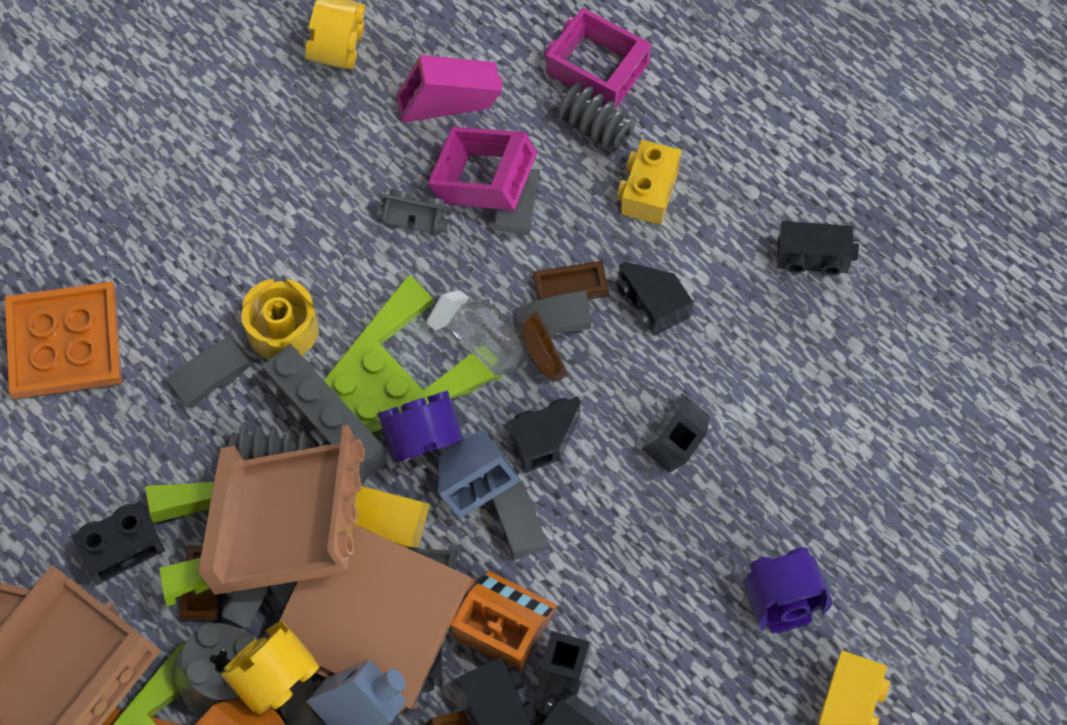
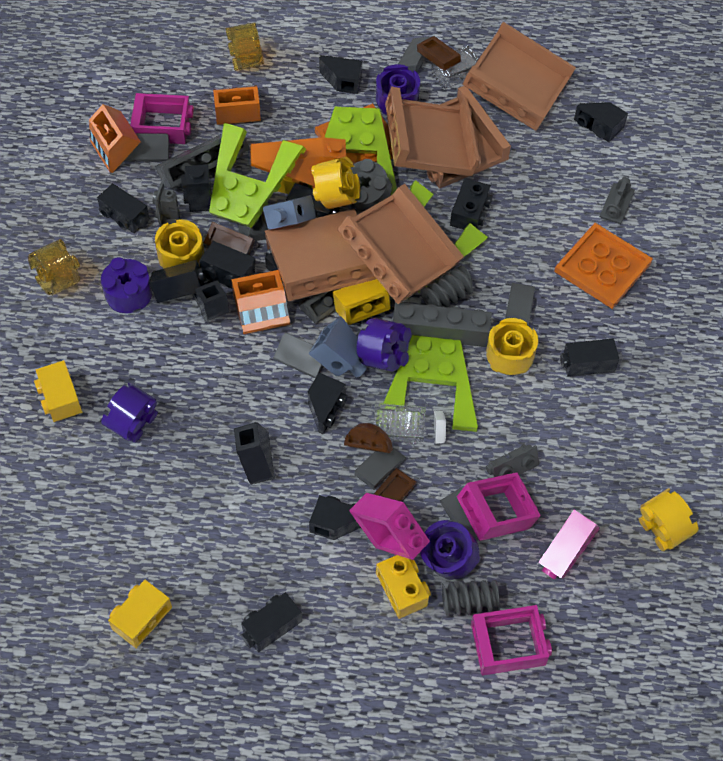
camera: 135 degrees right, 5 degrees down
(211, 243) = (590, 357): none -> black brick
(576, 164) = (464, 550): none -> dark purple brick
(621, 216) = (388, 525): none -> dark pink window
(949, 354) = (139, 613): none -> yellow brick

